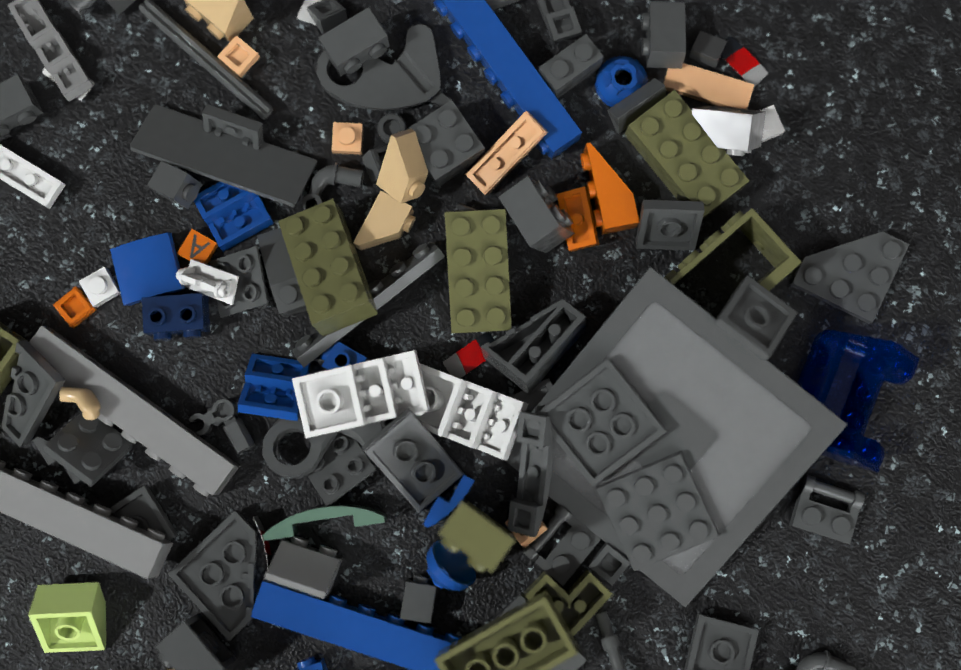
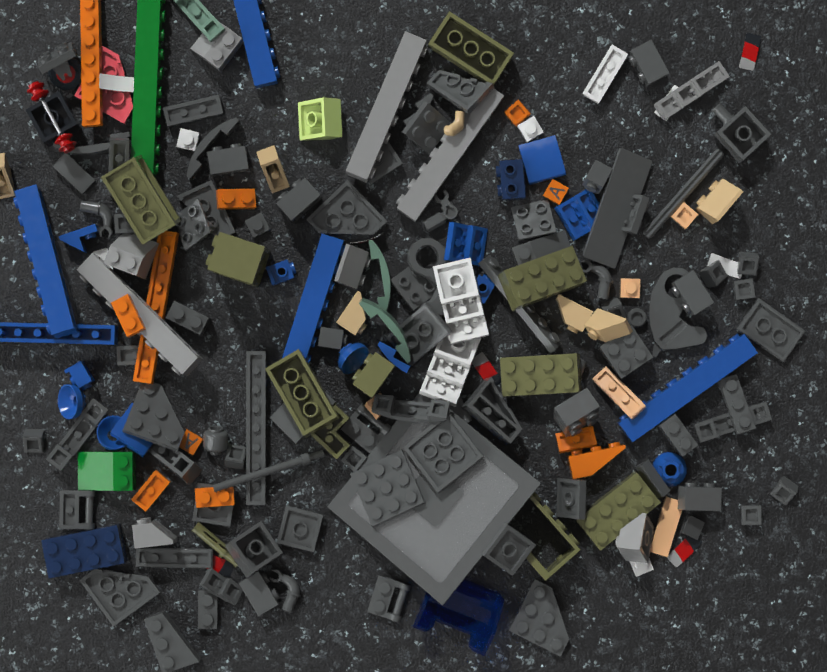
camera: 90 degrees right, 5 degrees up
(209, 281) = (533, 201): white hinge -> none
(372, 536) = (372, 309): none -> sand green slope
(383, 564) = (353, 316): none -> tan slope

